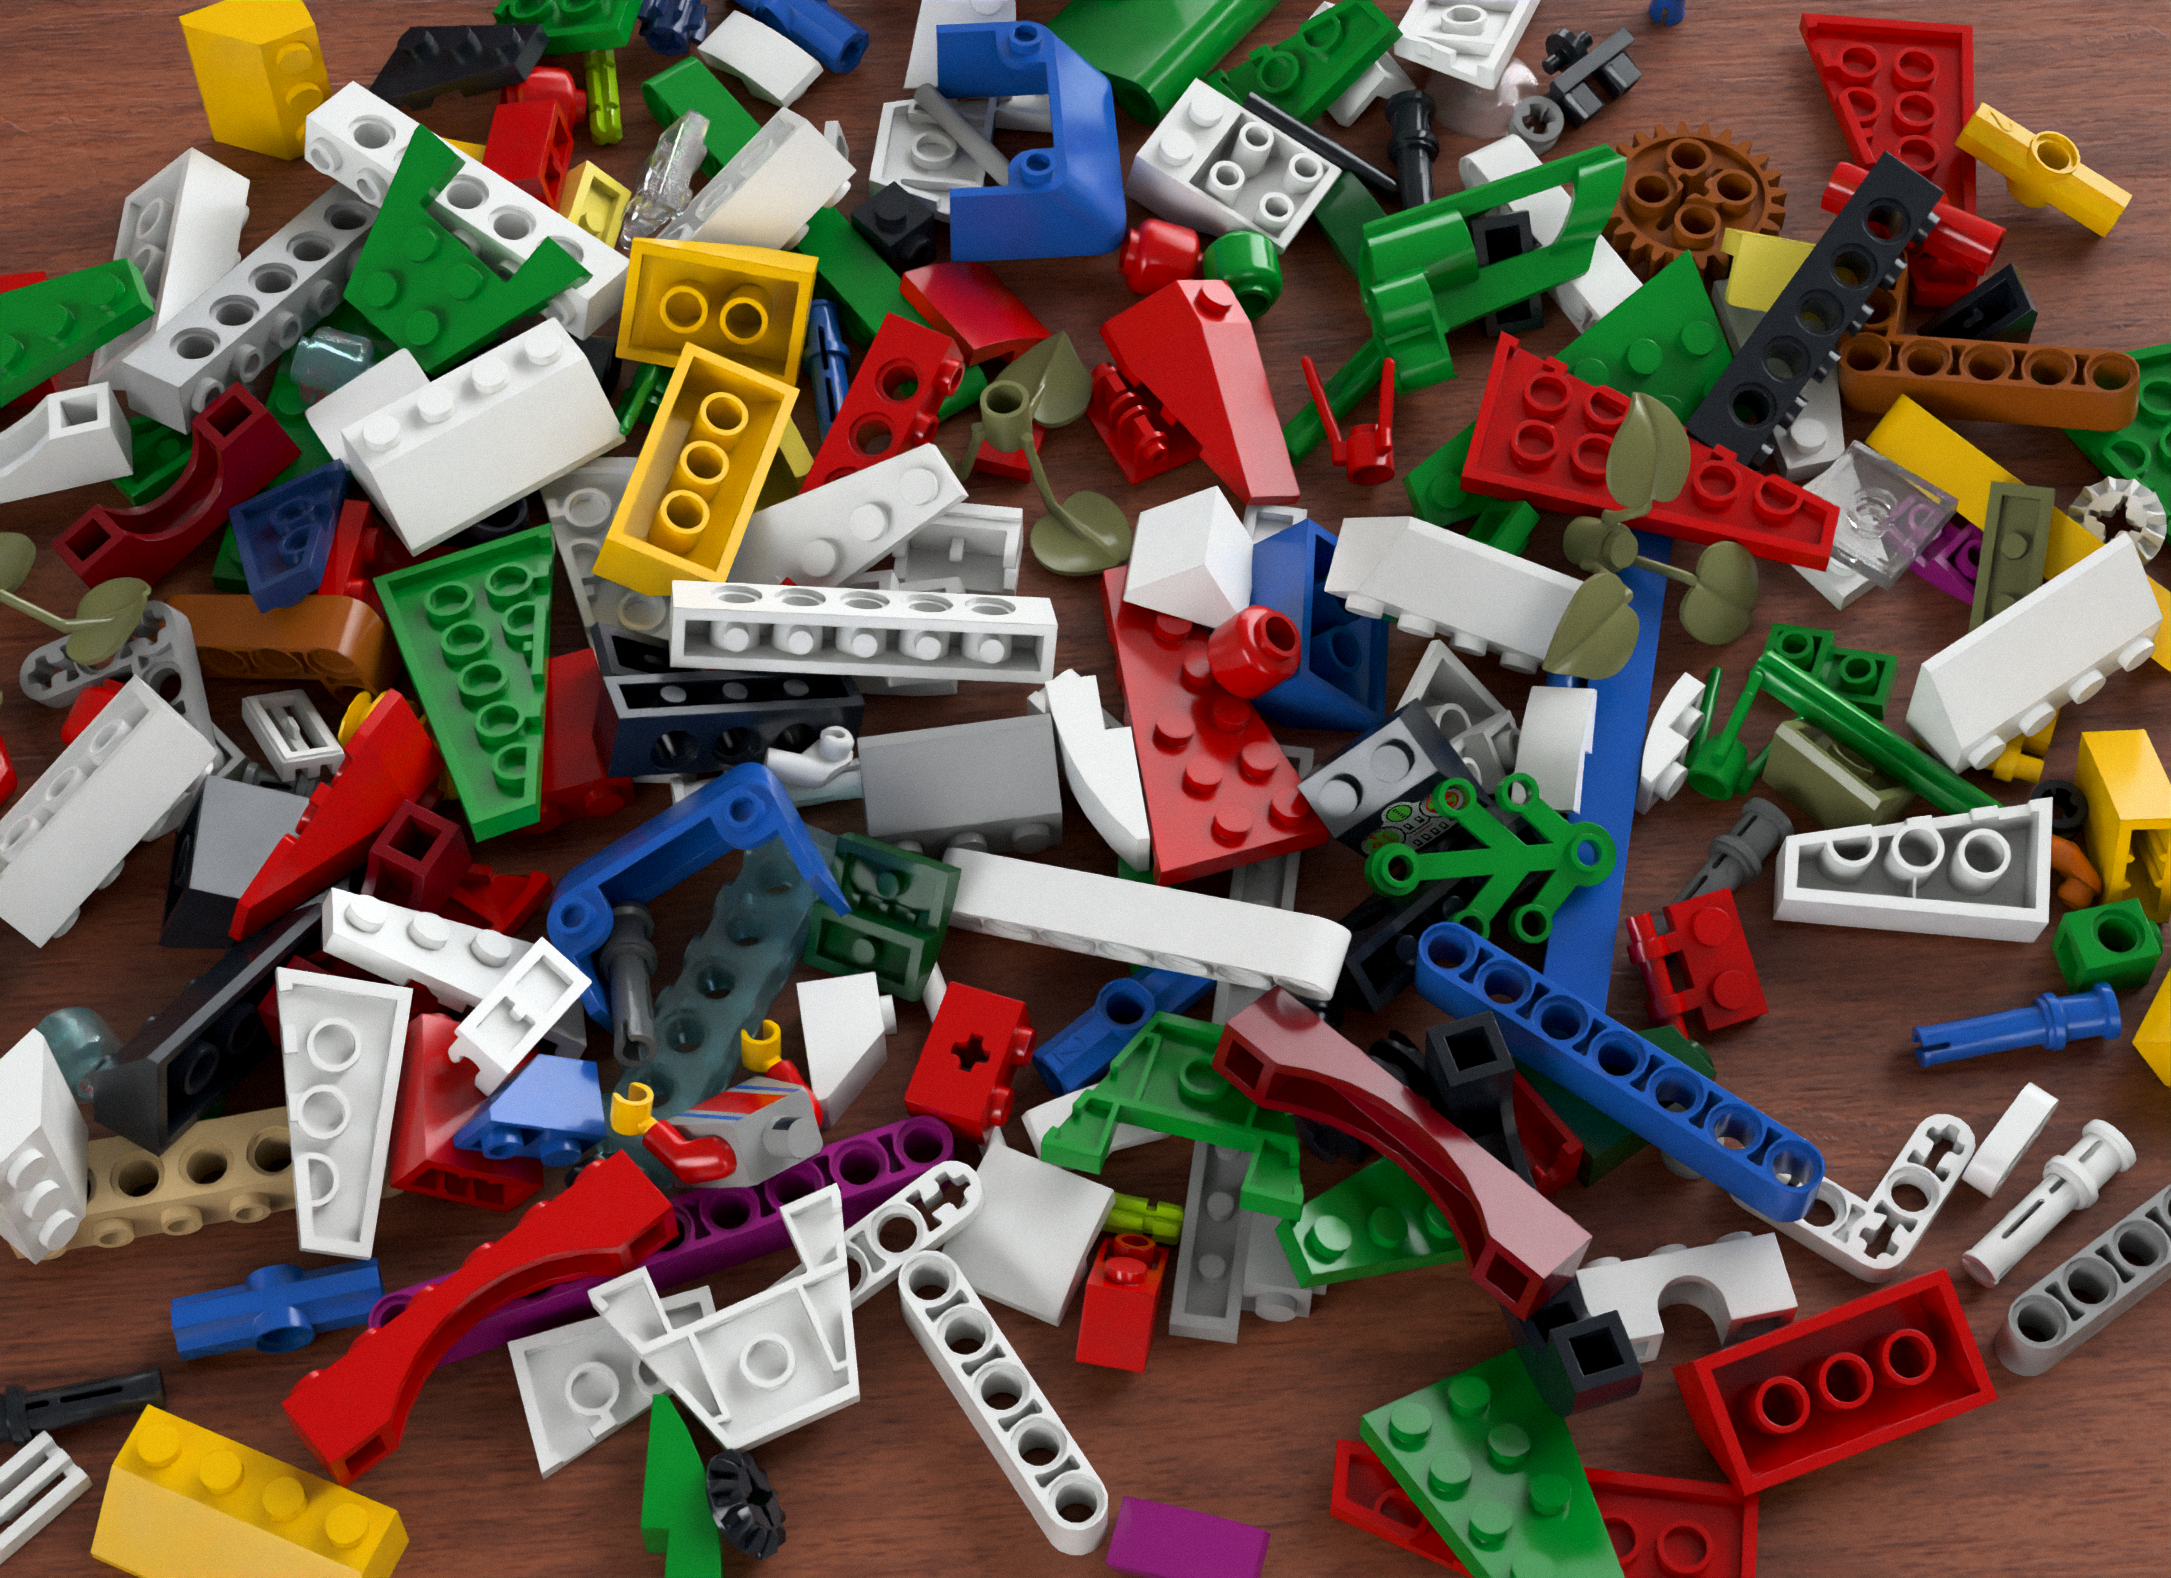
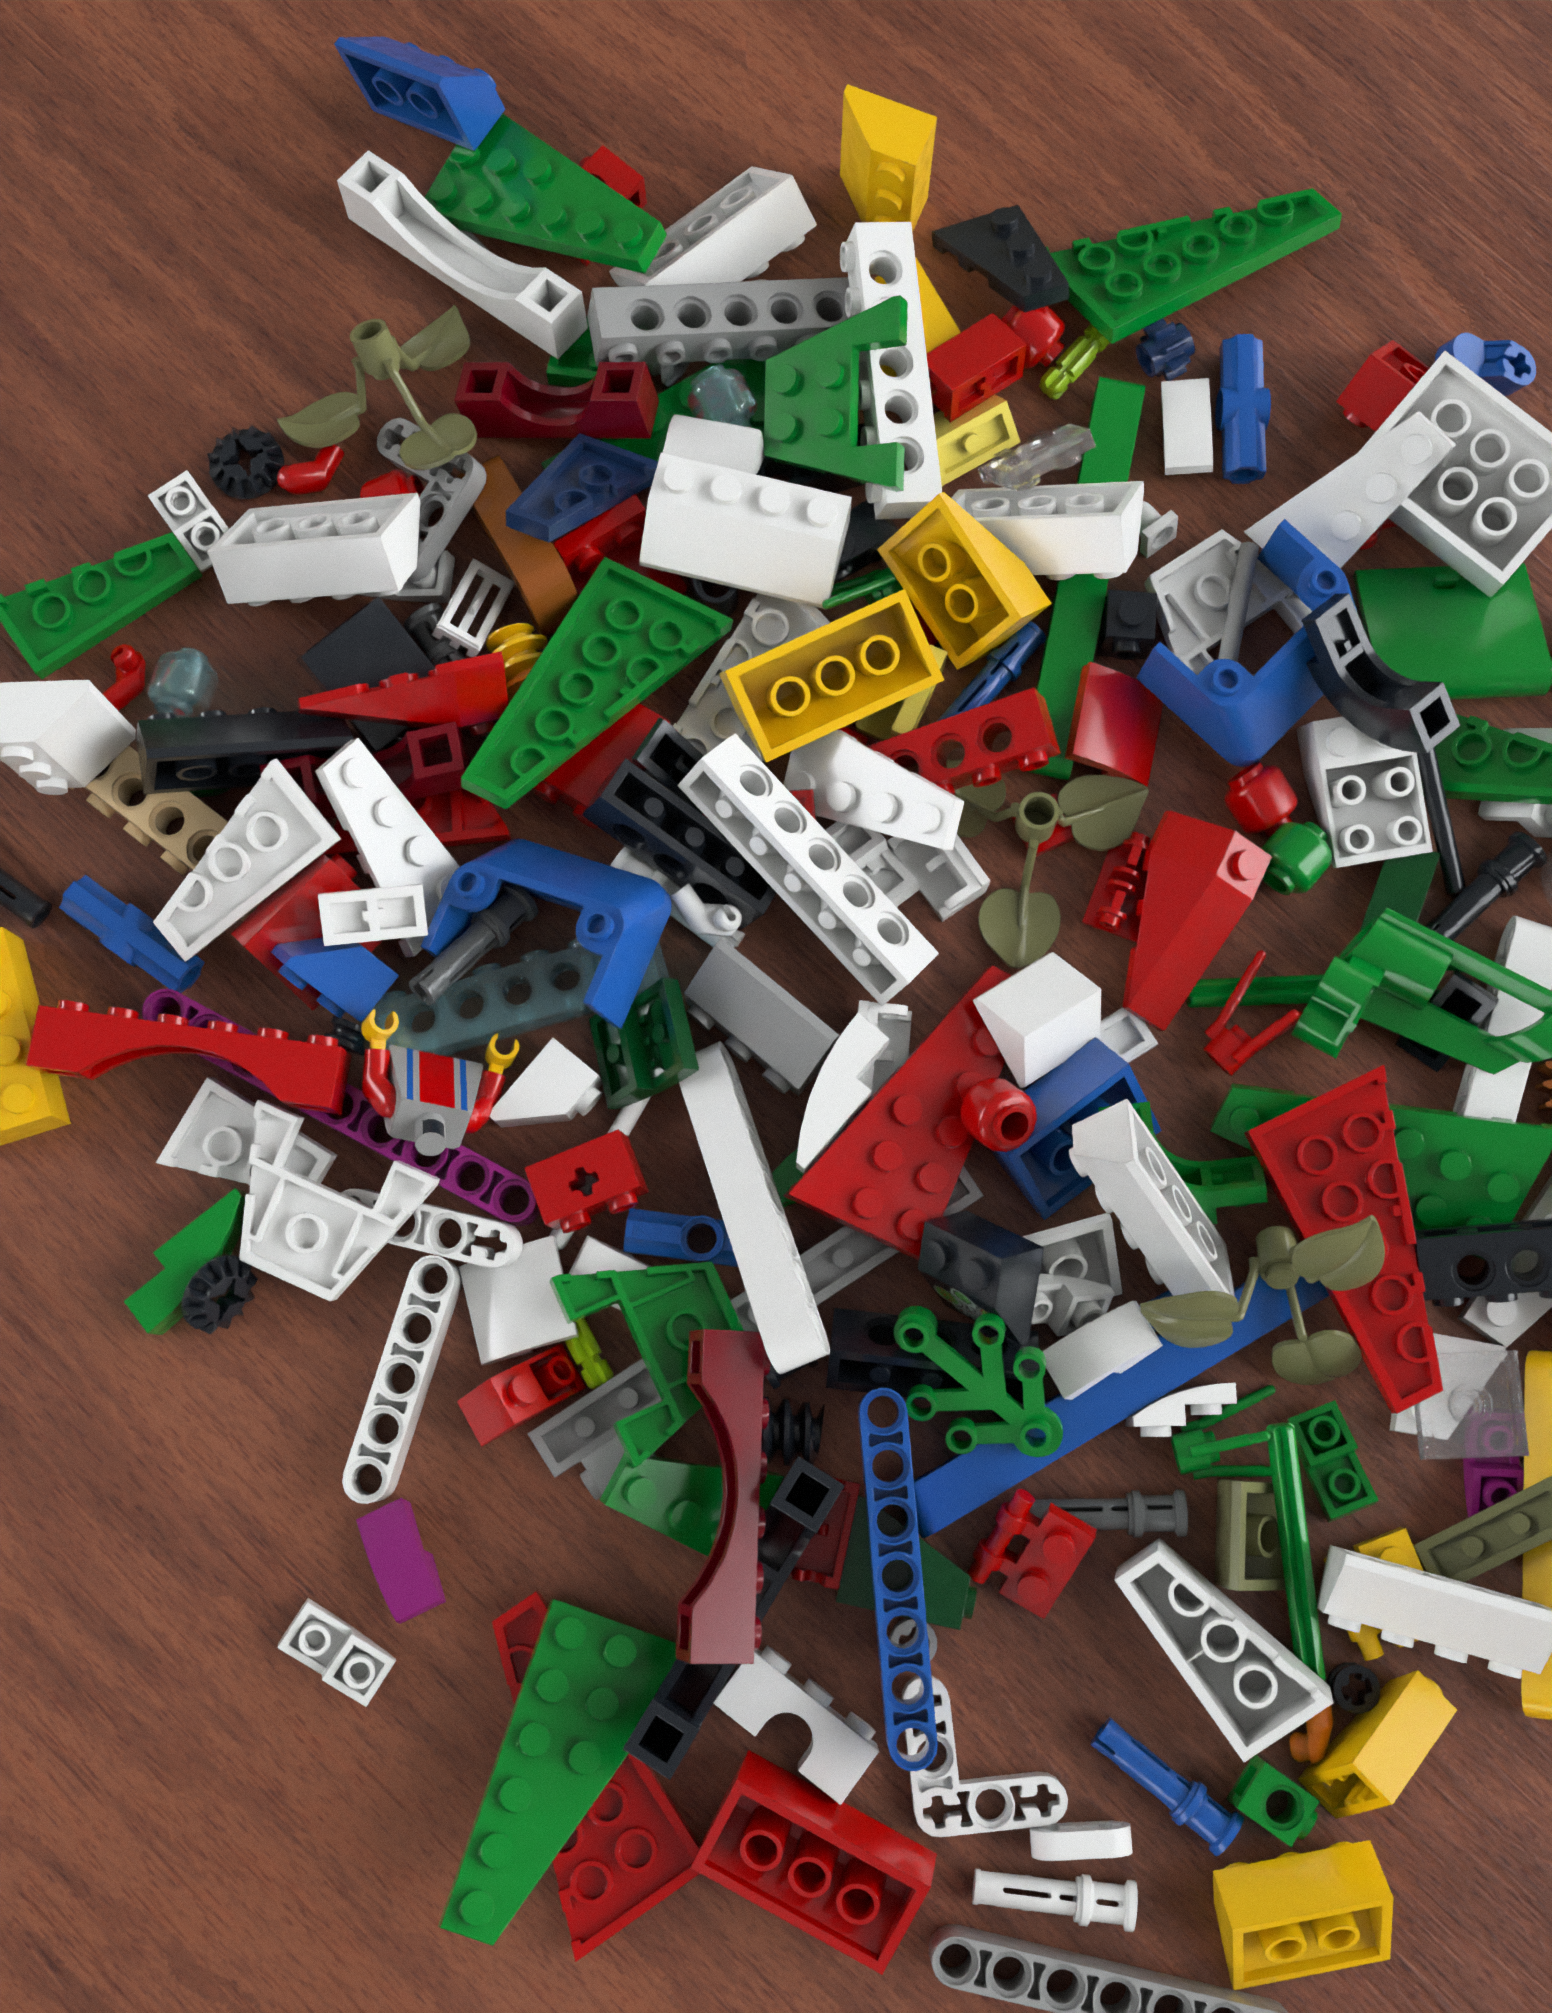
camera: 50 degrees right, 20 degrees up
(1155, 86) = (1366, 690): none -> black arch

